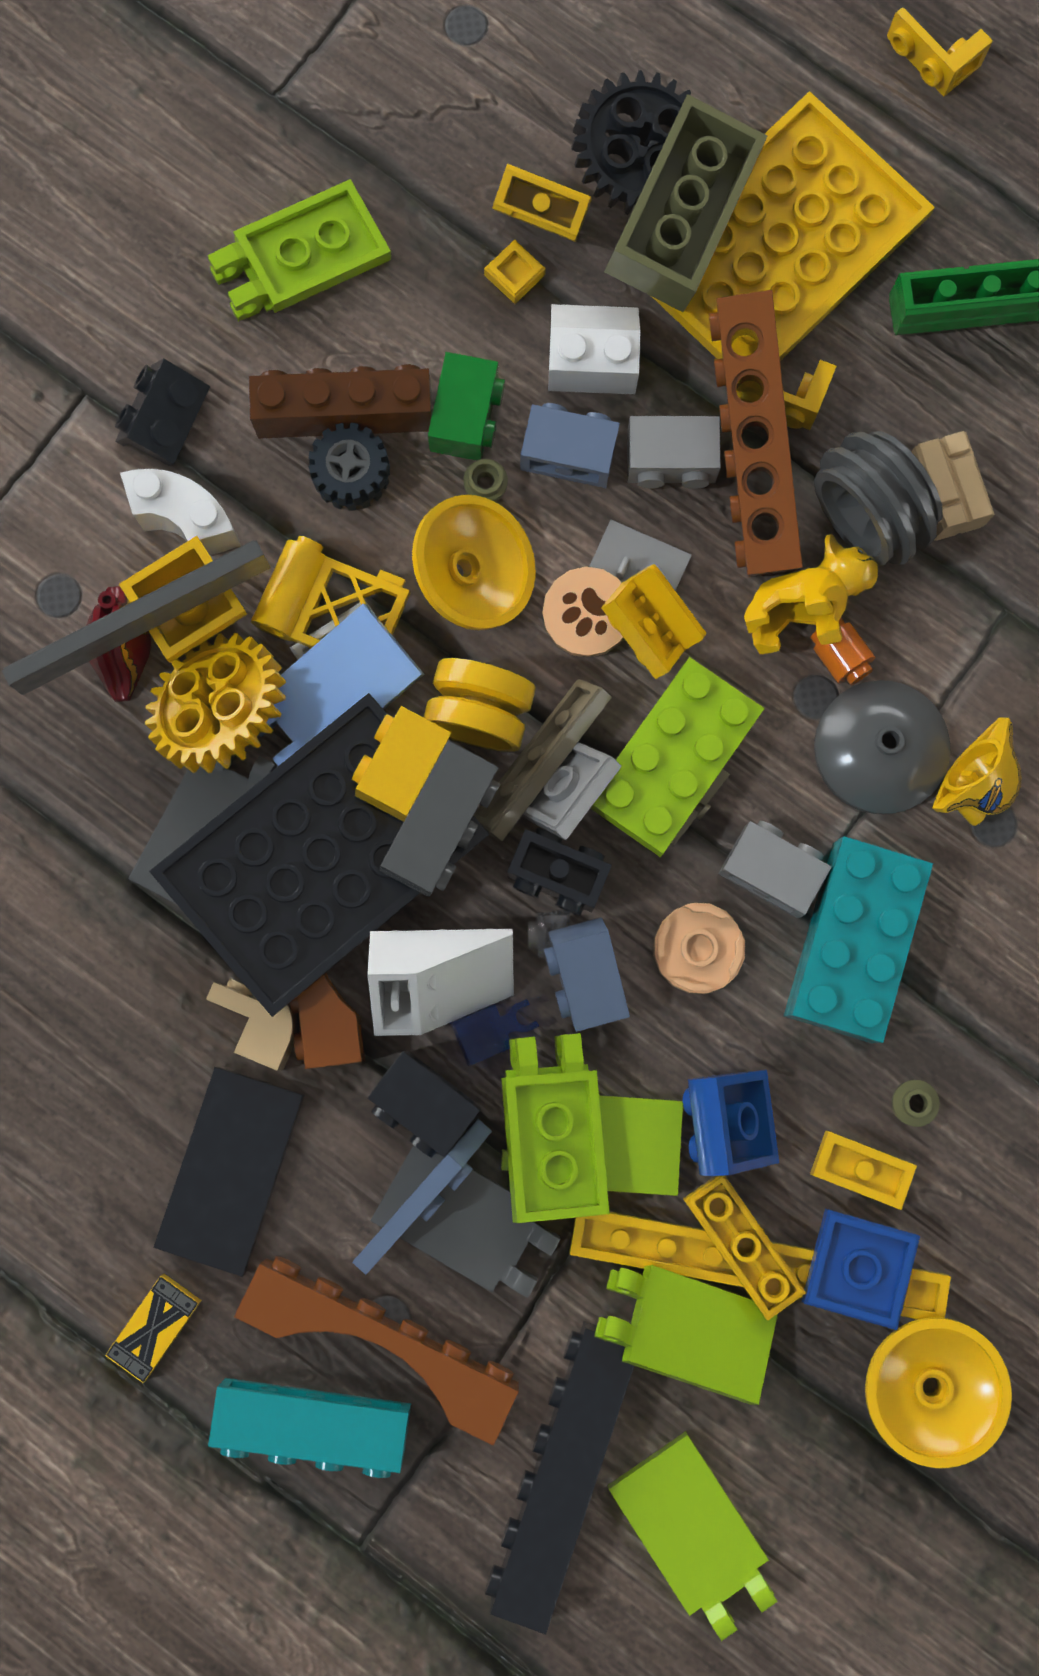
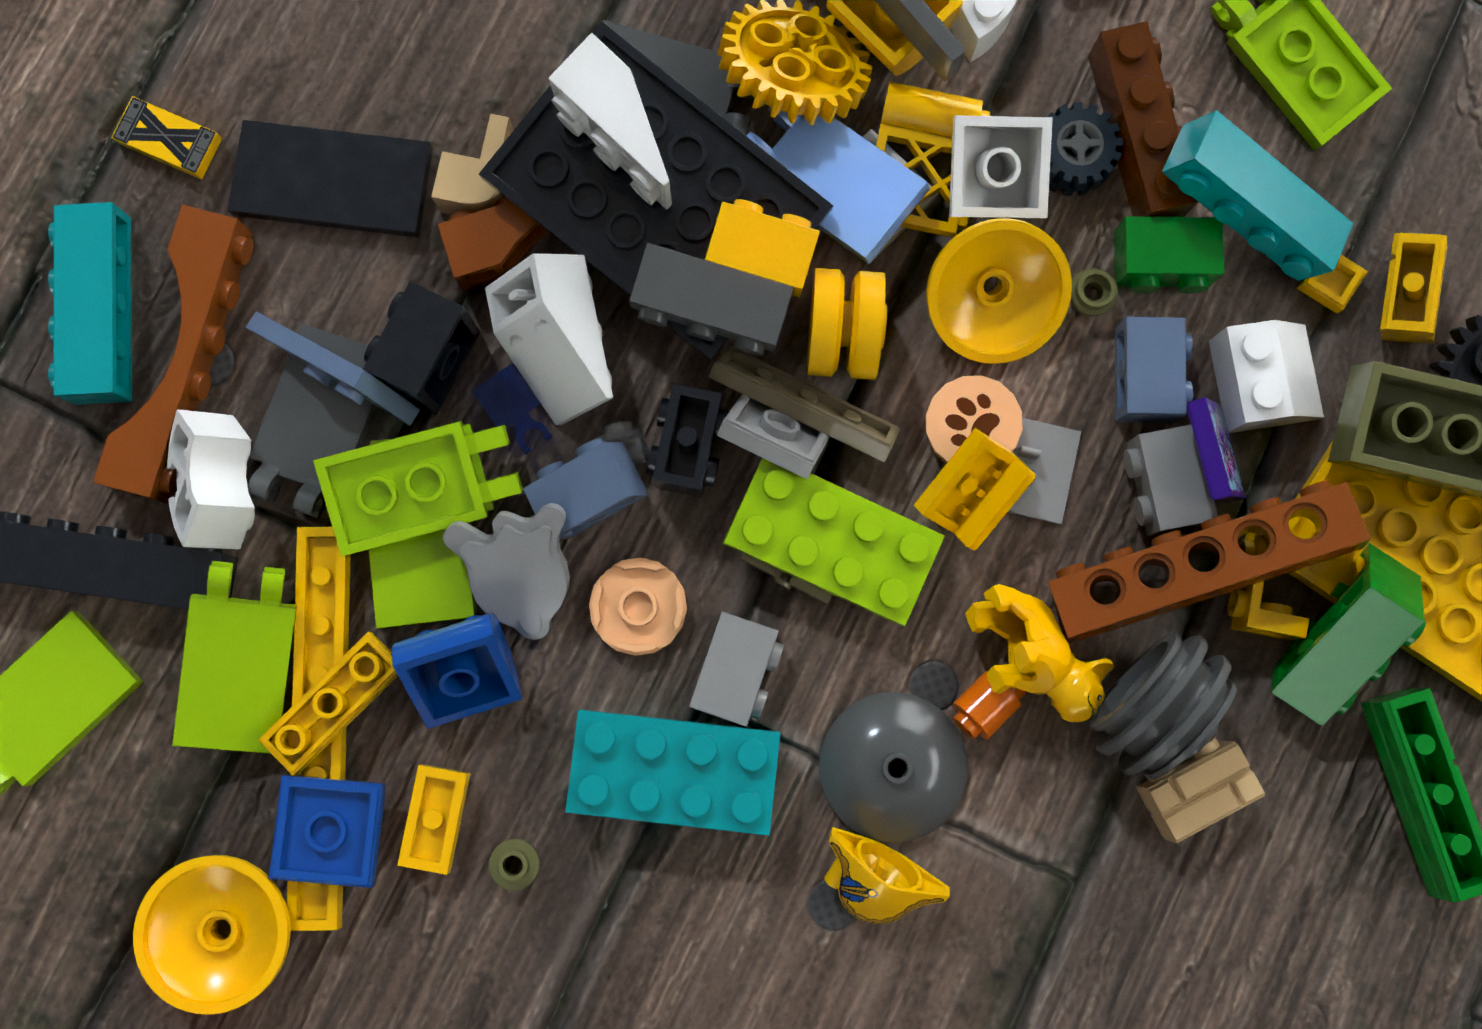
camera: 80 degrees right, 0 degrees up
(251, 871) = (602, 100): none -> white slope
(361, 534) = (1000, 166): none -> white slope
(436, 317) = (1257, 197): none -> teal brick
(511, 1330) = (212, 487): none -> white brick
(651, 1051) = (516, 568): none -> light grey tile
(659, 404) = (1215, 450): none -> dark purple tile
(845, 325) = (1352, 638): none -> green wedge

